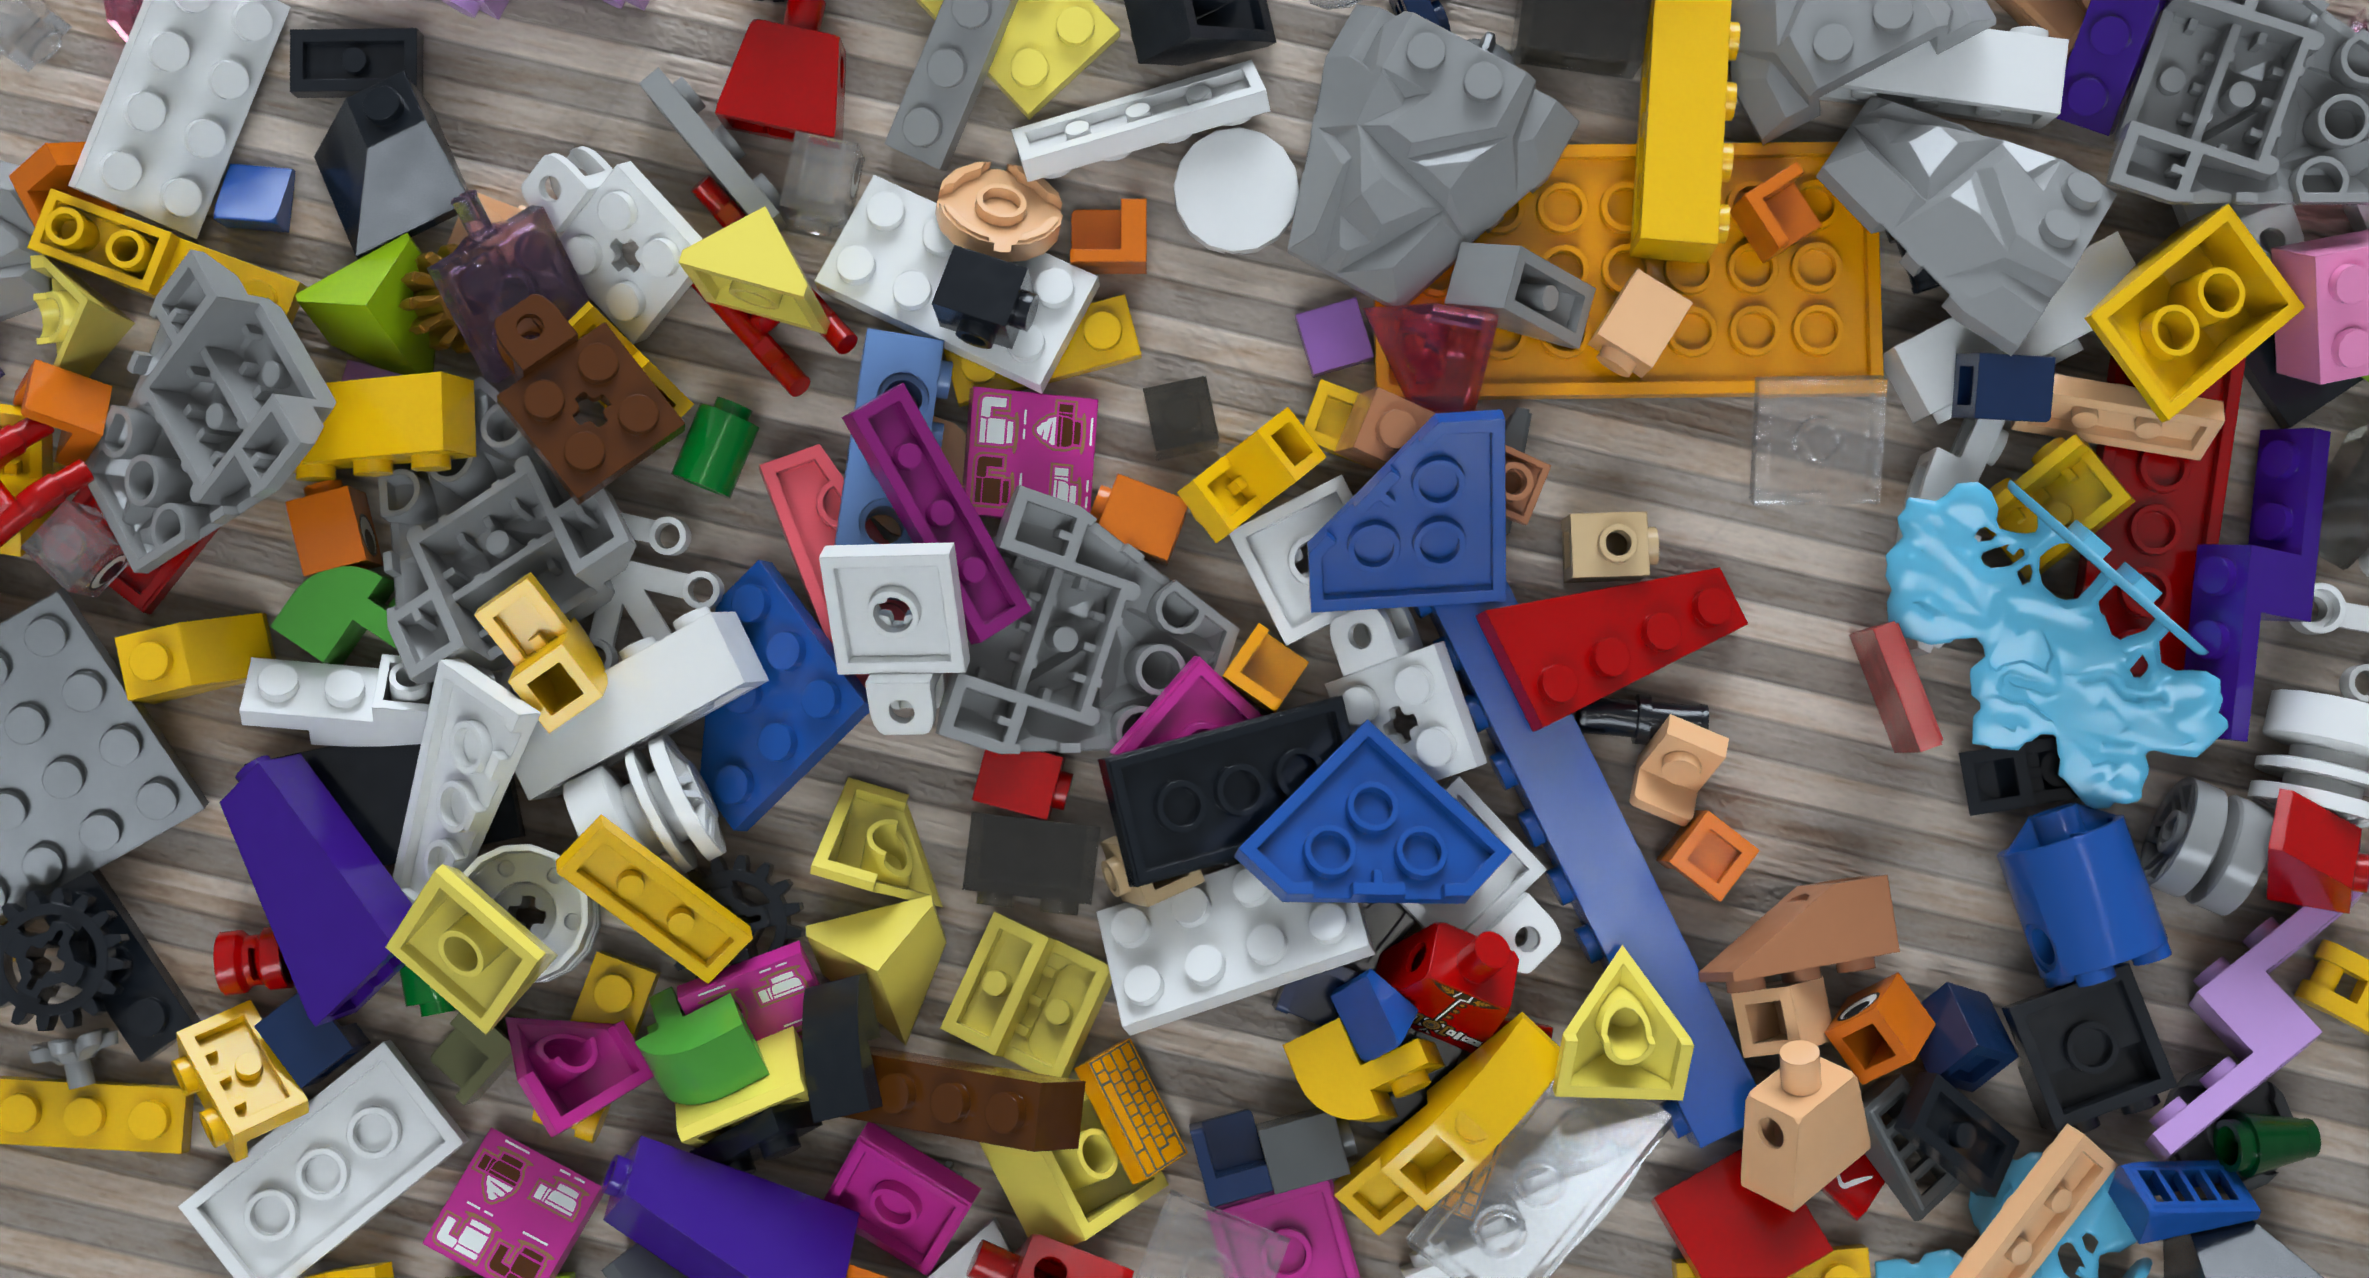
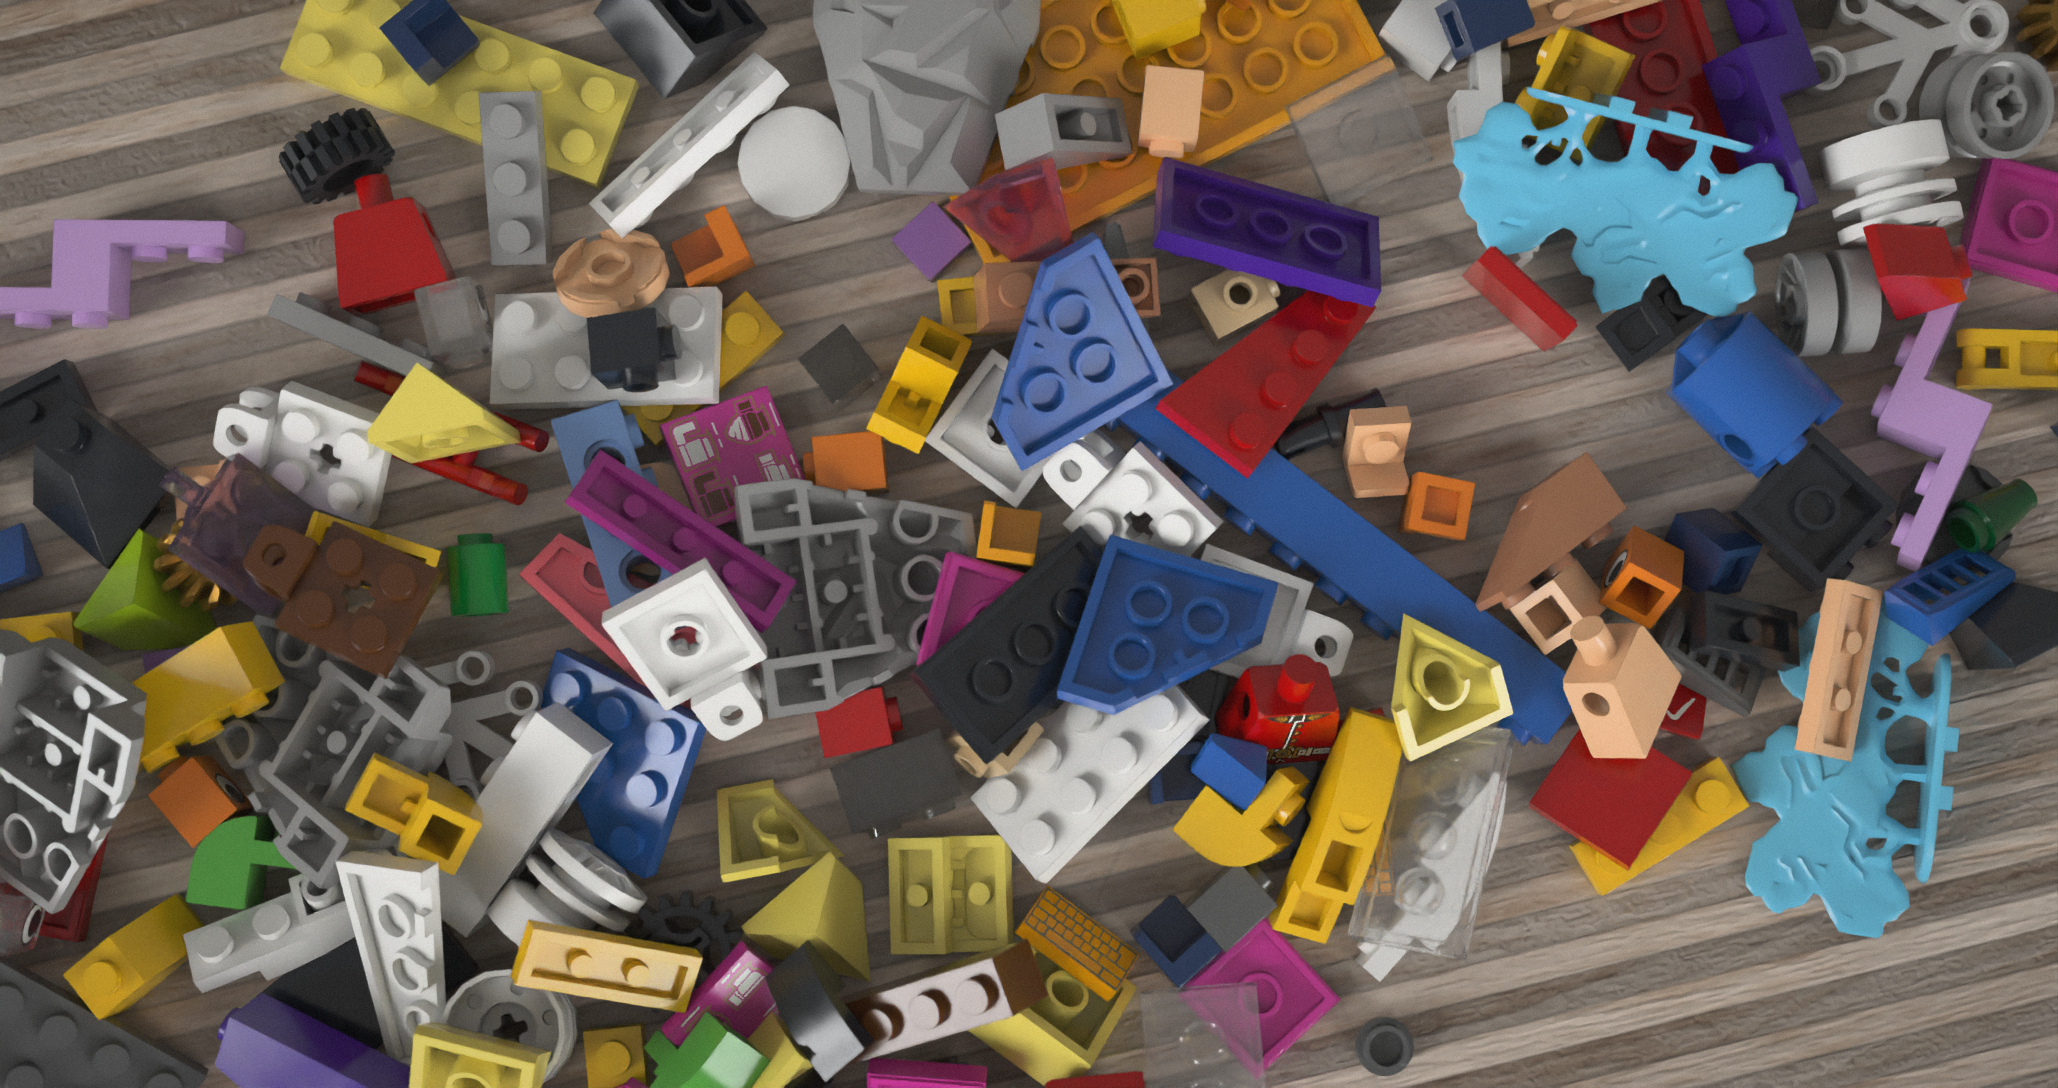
camera: 20 degrees left, 0 degrees up
(1675, 495) = (1267, 232): none -> dark purple plate

